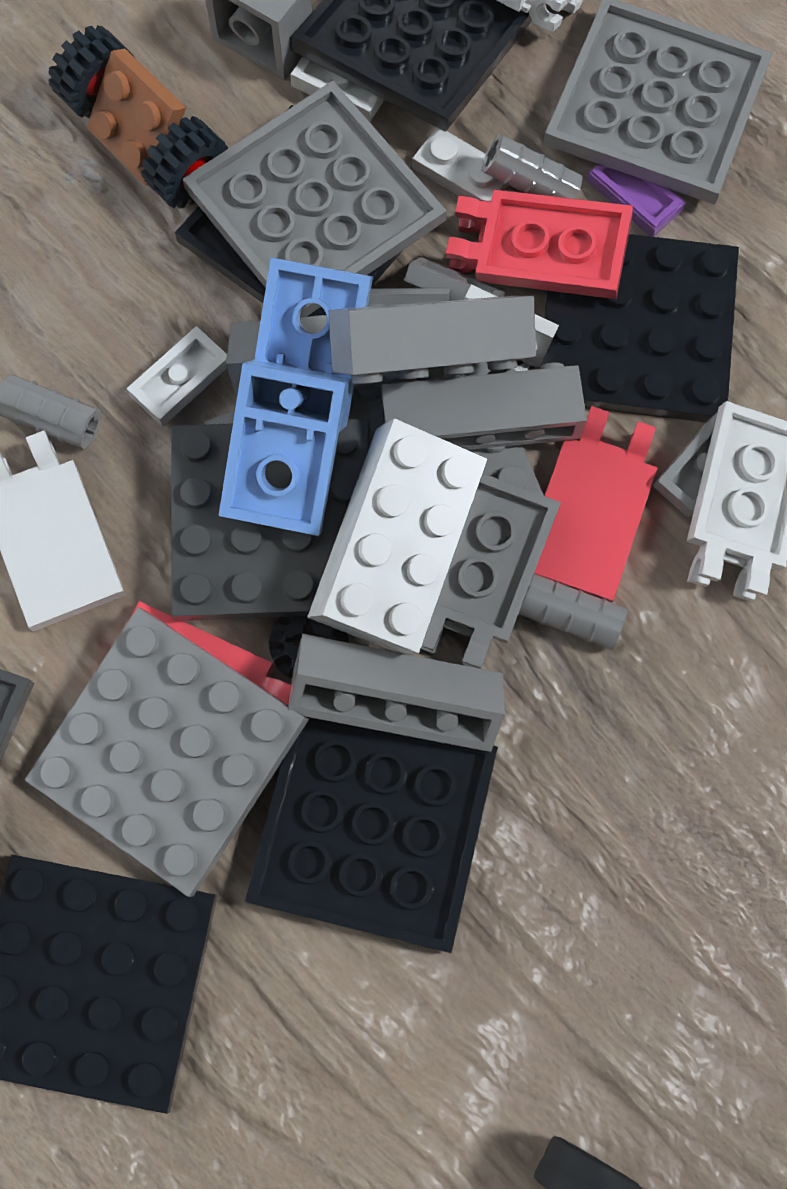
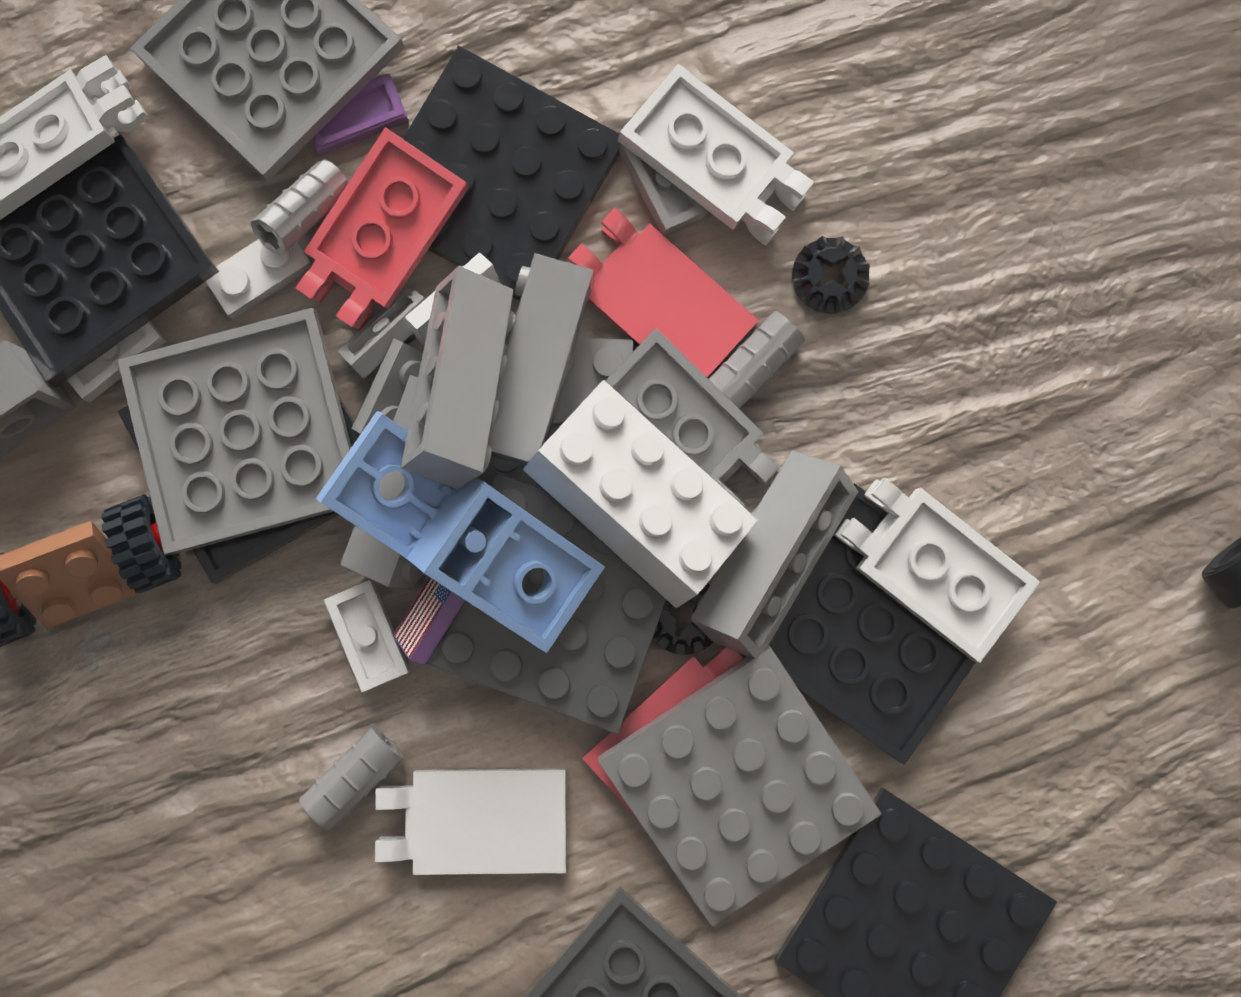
camera: 65 degrees left, 10 degrees up
(203, 412) = (427, 621): none -> tile
(447, 858) = (939, 568): none -> white tile
(667, 659) = (830, 297): none -> black gear

